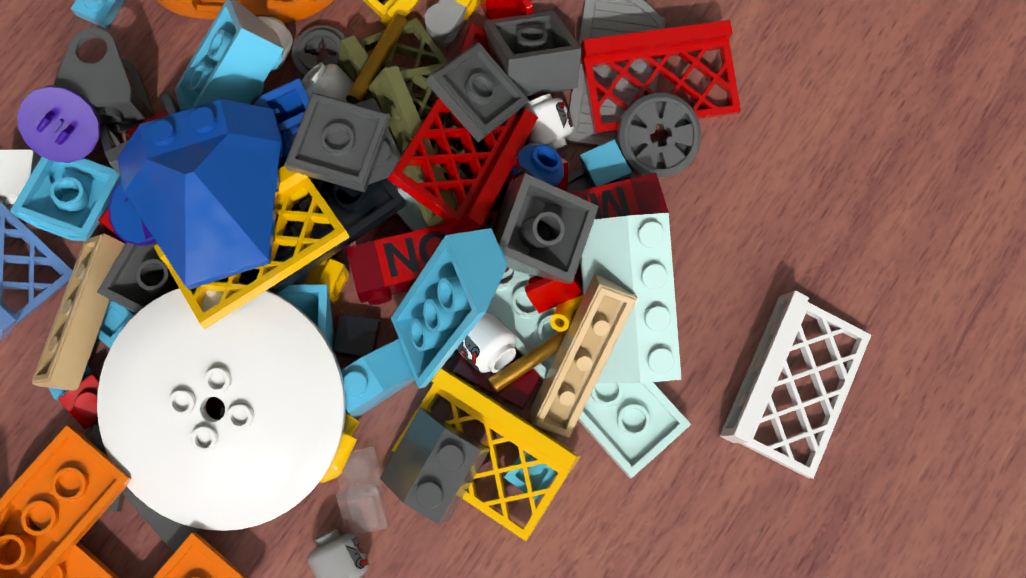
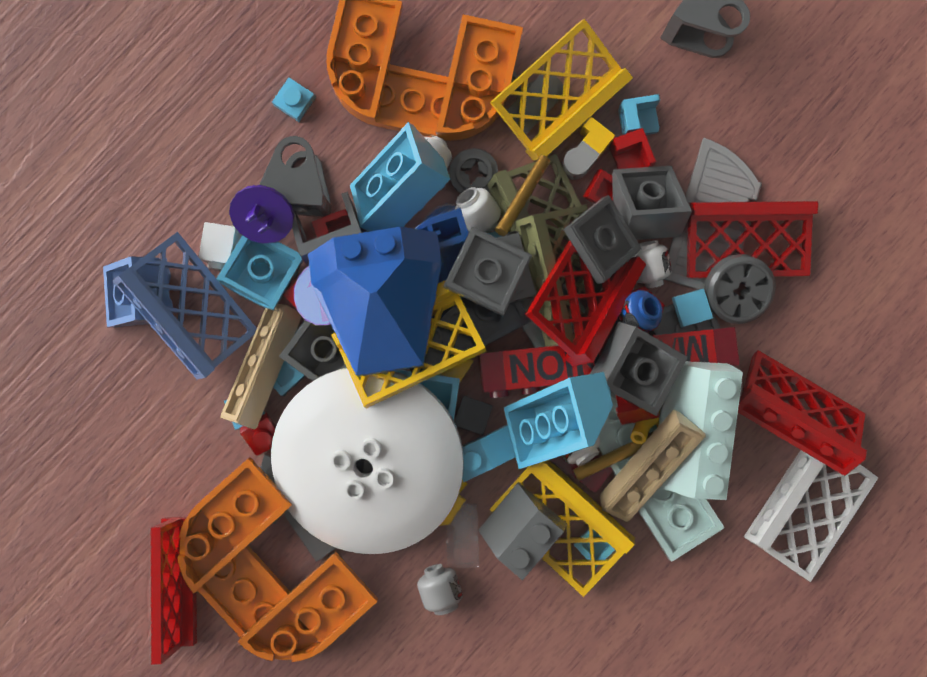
camera: 10 degrees right, 10 degrees up
(768, 282) = (795, 423): none -> red fence

